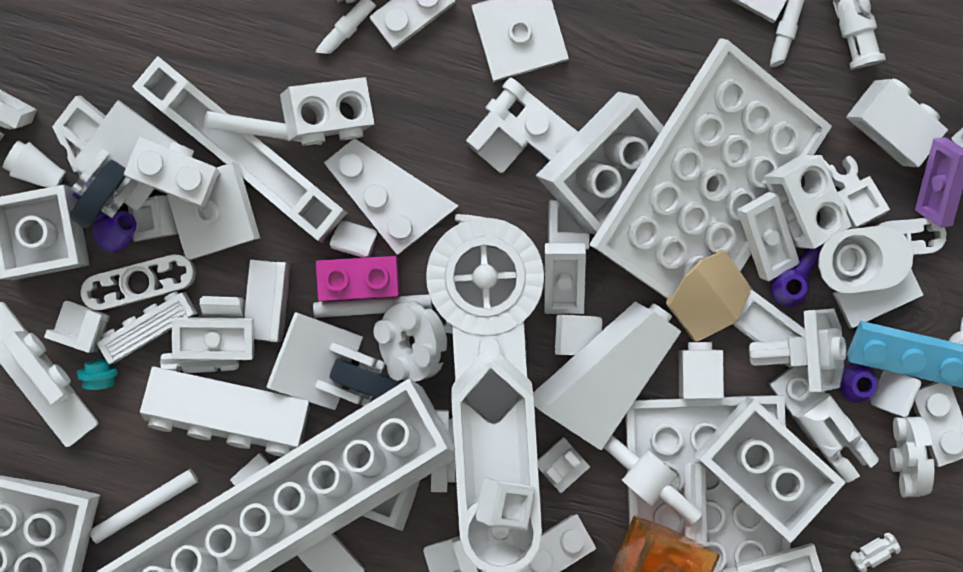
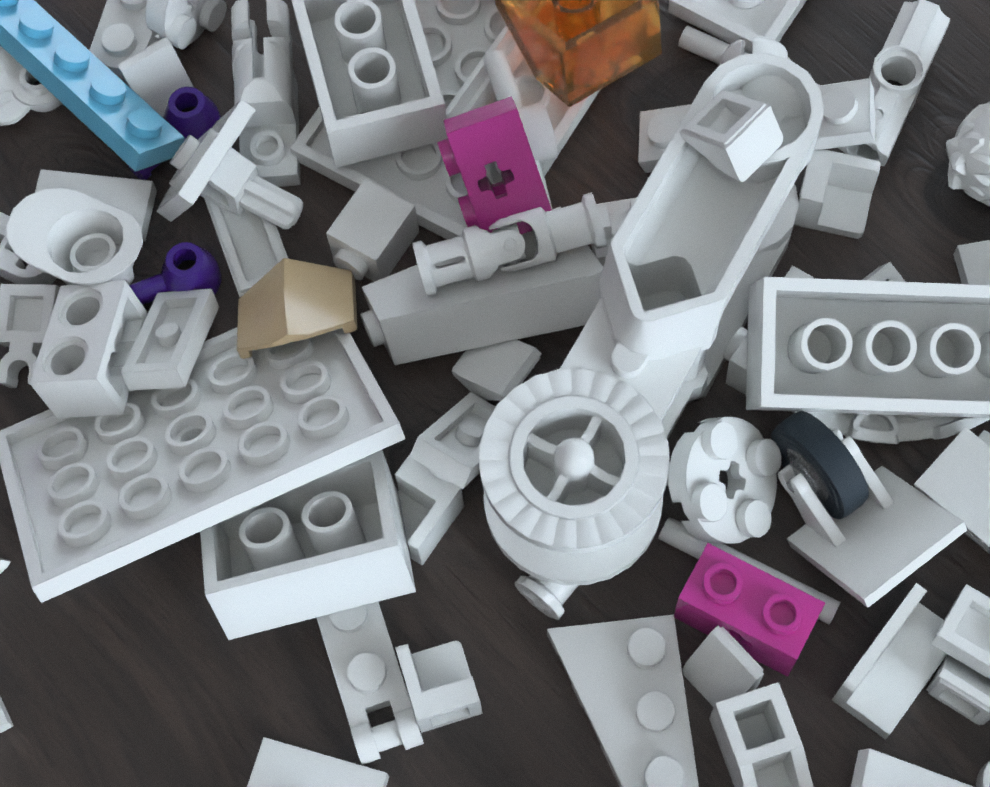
camera: 145 degrees left, 20 degrees down
(617, 386) = (485, 251): none -> white piece
(644, 439) = (486, 137): none -> dark pink brick

